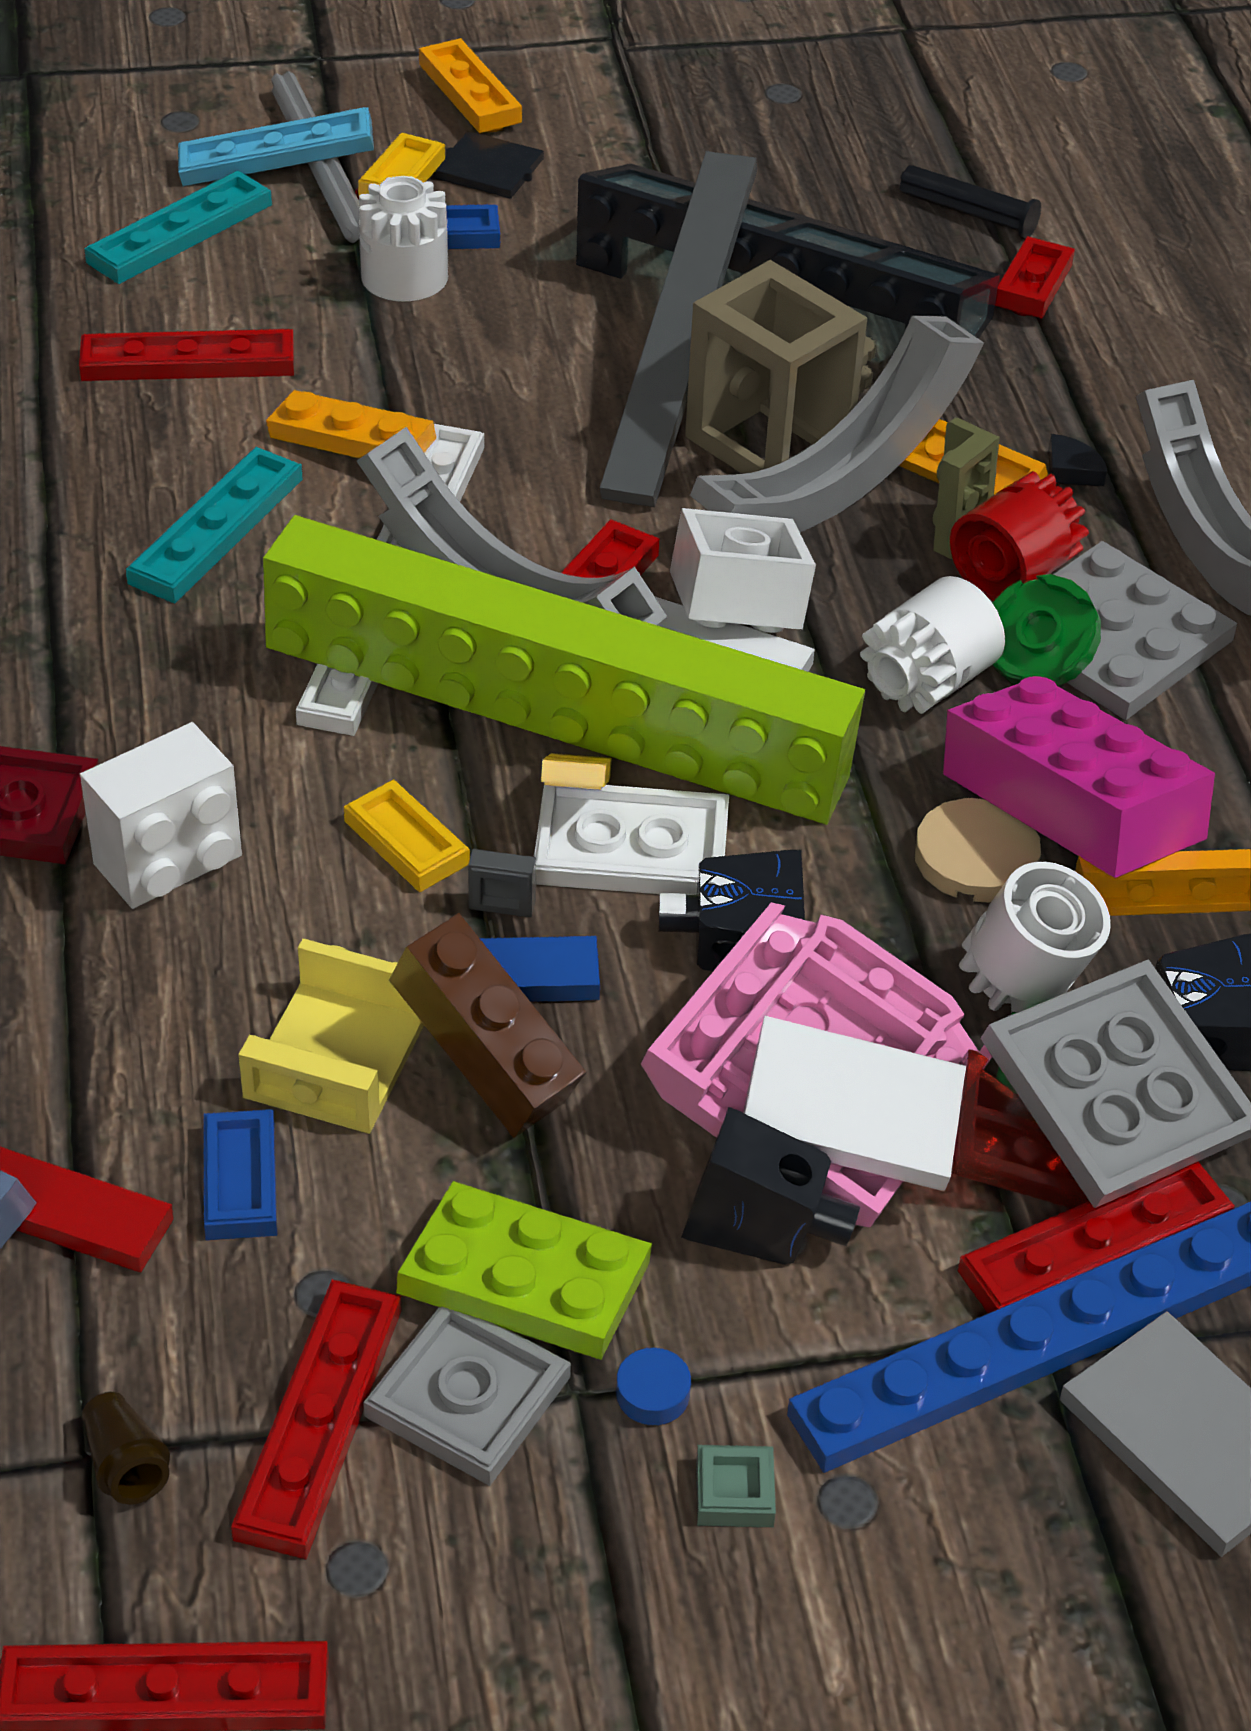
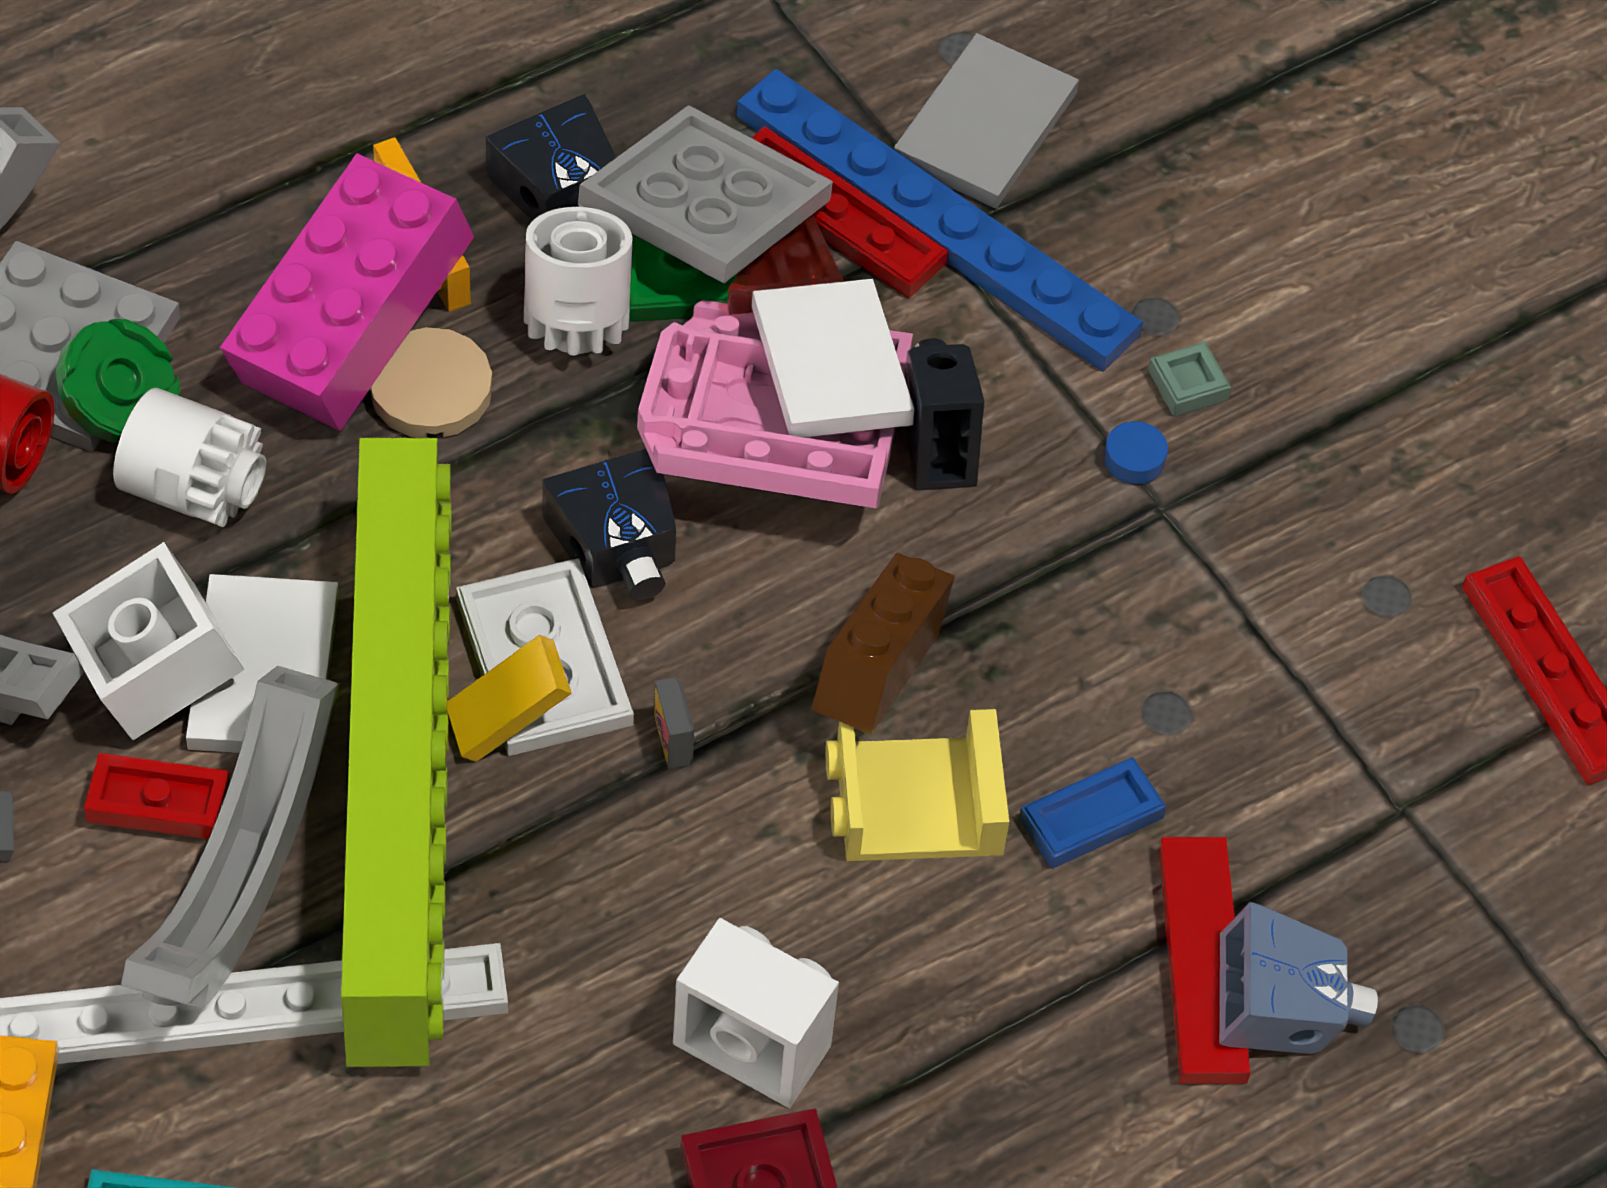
camera: 115 degrees left, 10 degrees up
(124, 1450) = (1398, 767): dark brown cone -> none
(317, 1420) = (1283, 662): red tile -> none
(406, 835) = (628, 843): yellow tile -> none
(467, 1392) = (1205, 573): light grey tile -> none
(525, 1269) = (1082, 565): lime plate -> none
(550, 966) = (752, 677): blue tile -> none

